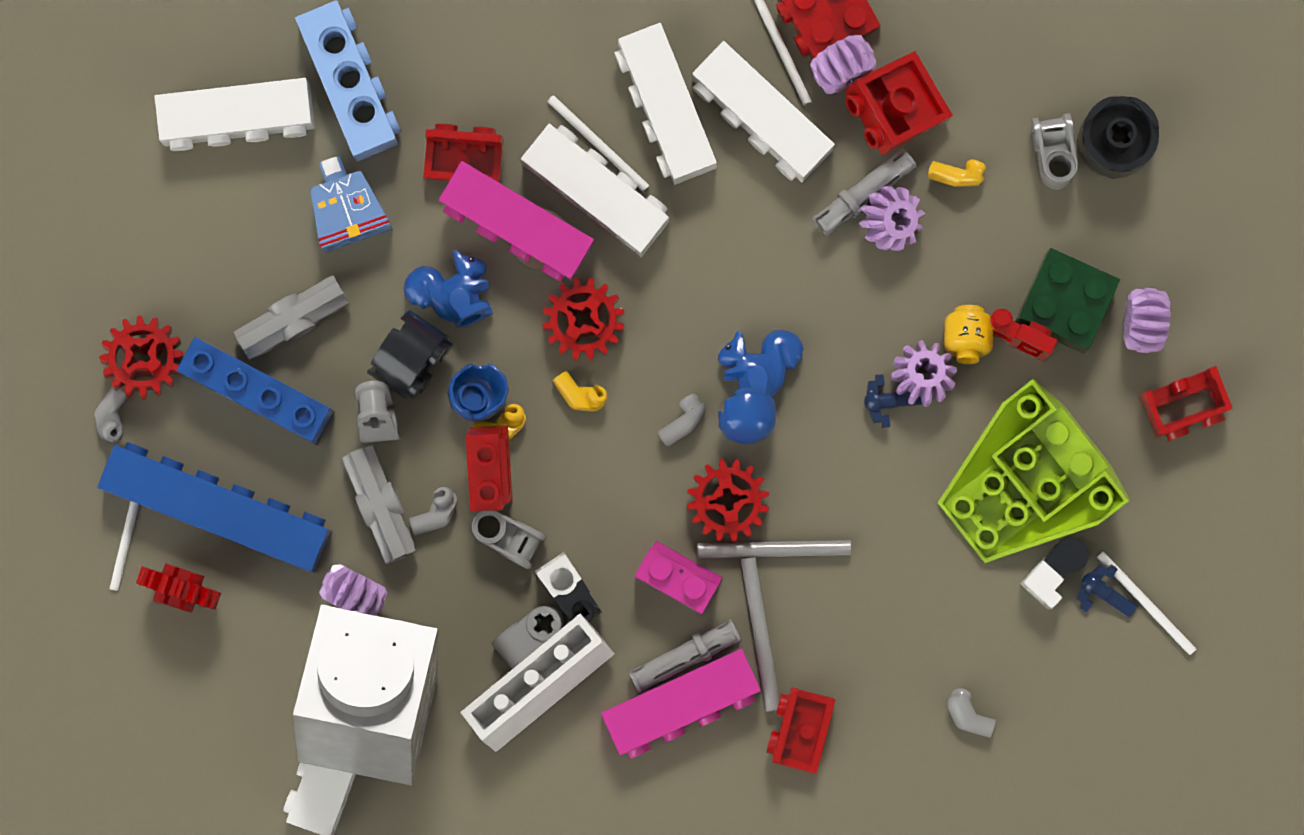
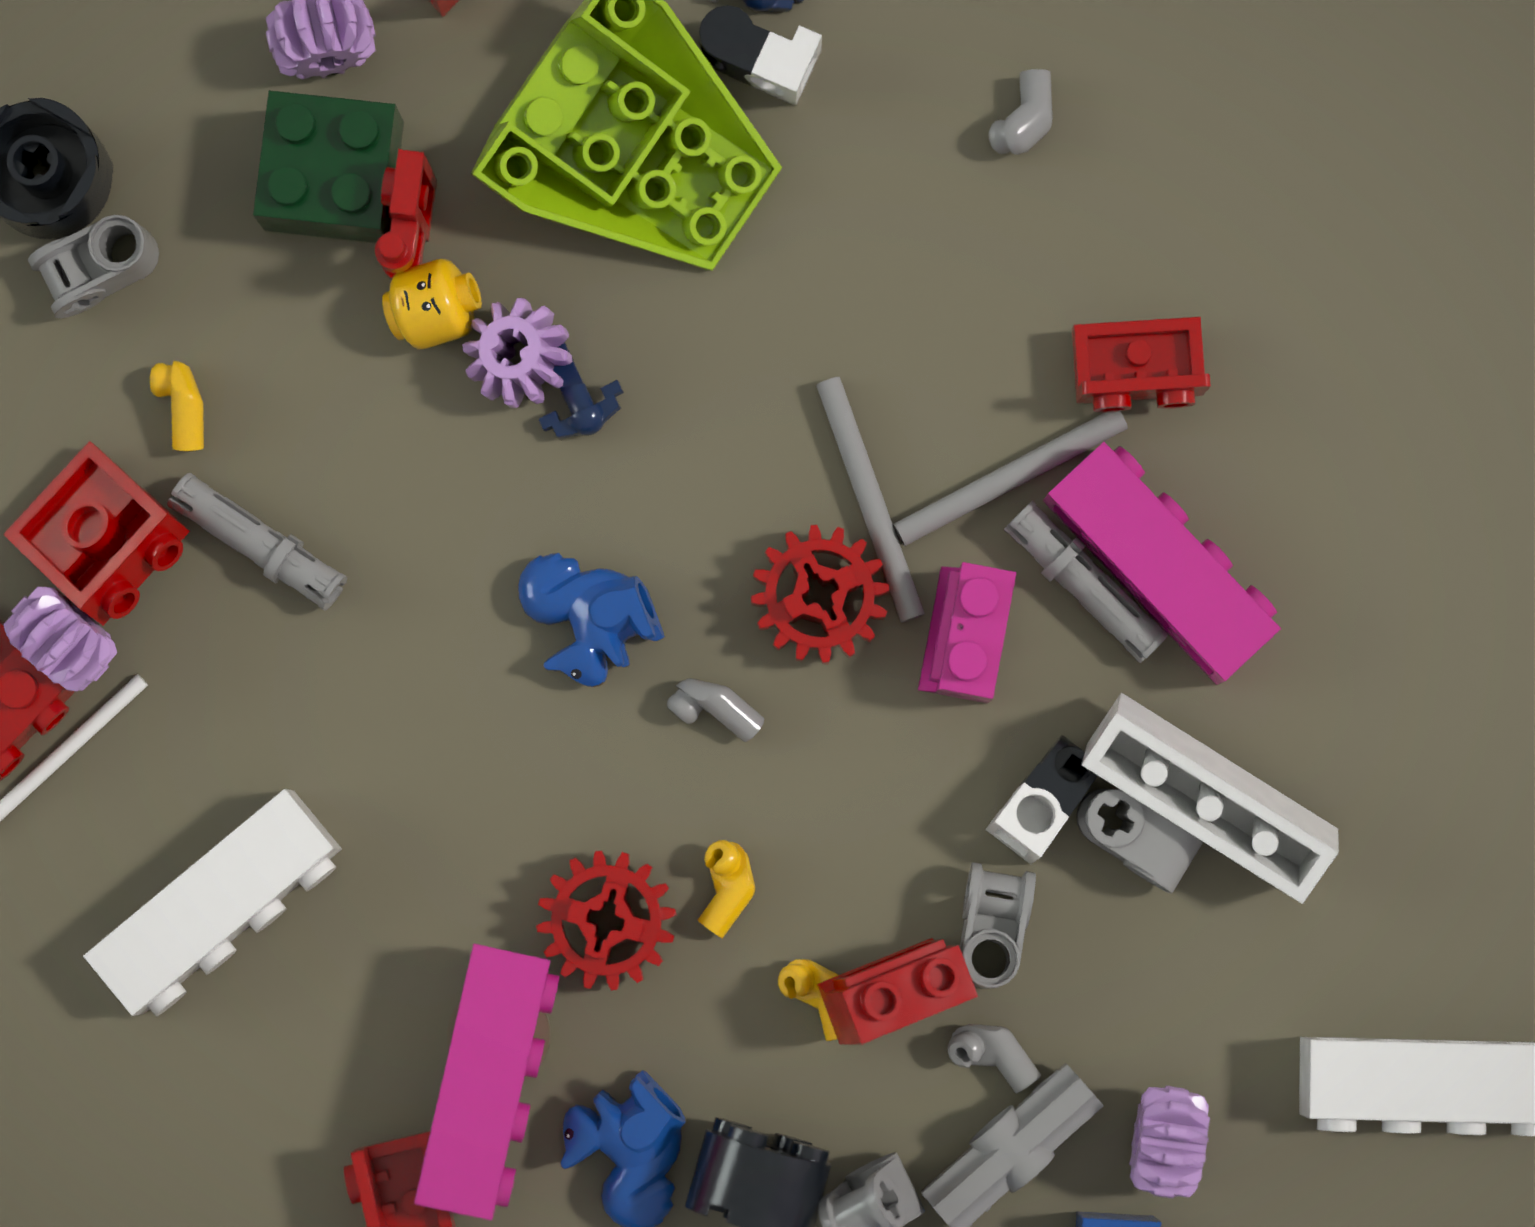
camera: 115 degrees left, 0 degrees up
(352, 720) = (1296, 1078): container -> none
(478, 392) = (779, 1050): blue hair -> none
(595, 189) = (389, 972): white brick -> none
(597, 142) = (313, 993): white axle -> none
(747, 418) = (680, 604): blue hair -> none
(762, 112) = (179, 746): white brick -> none
(895, 232) = (285, 481): lavender gear -> none

